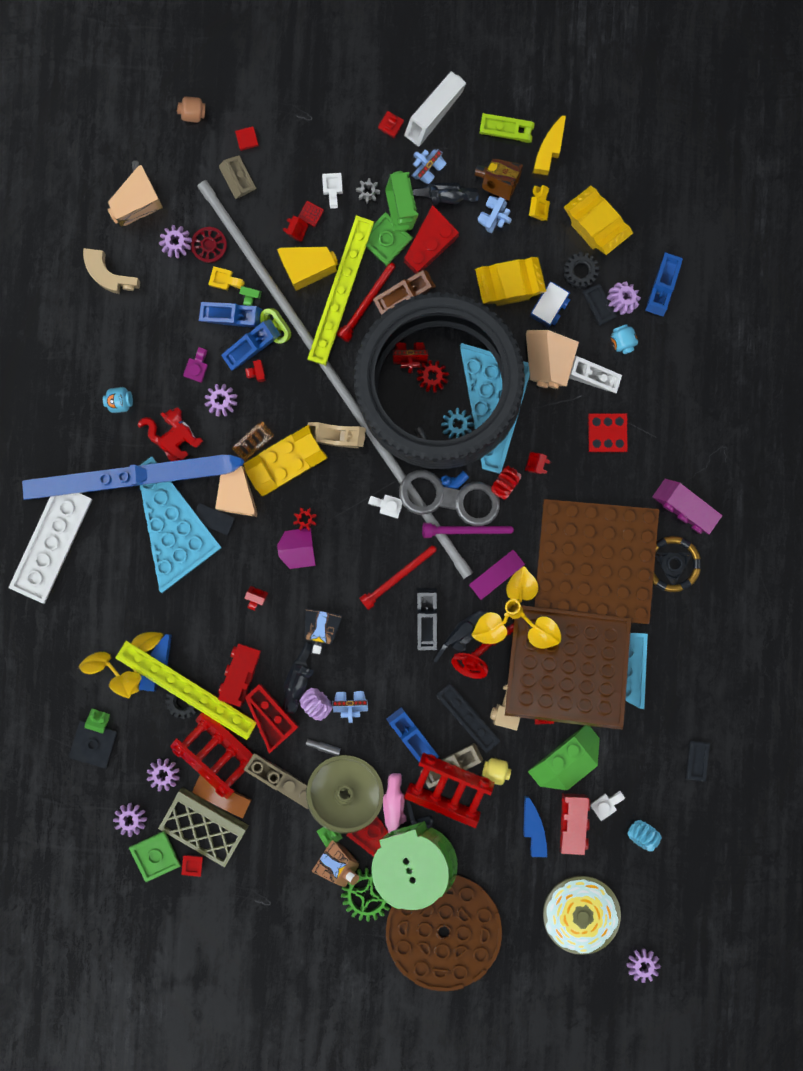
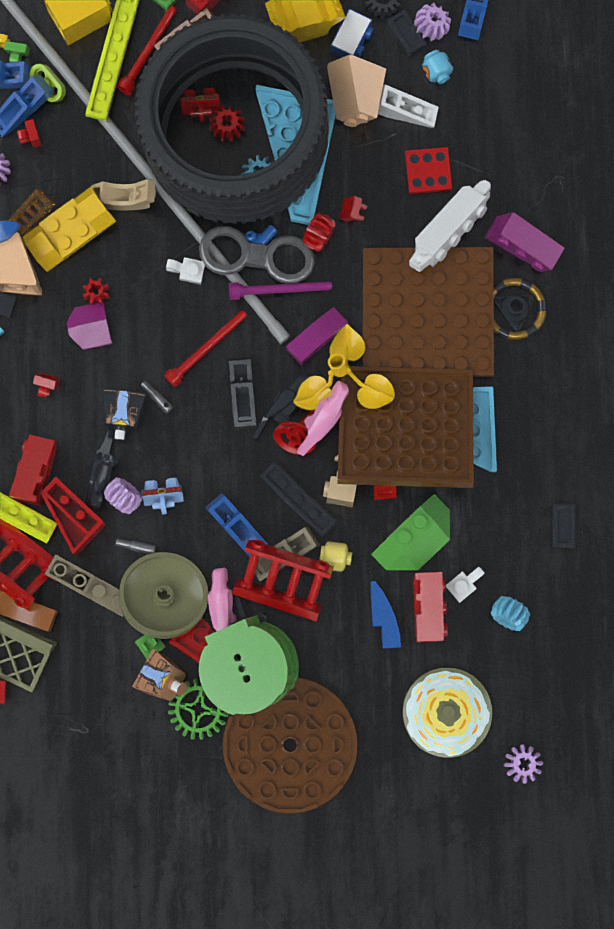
camera: 10 degrees left, 5 degrees down
(351, 617) = (157, 397): none -> flat silver piece
(498, 651) = (324, 417): none -> bright pink animal
(623, 487) = (450, 225): none -> white hinge

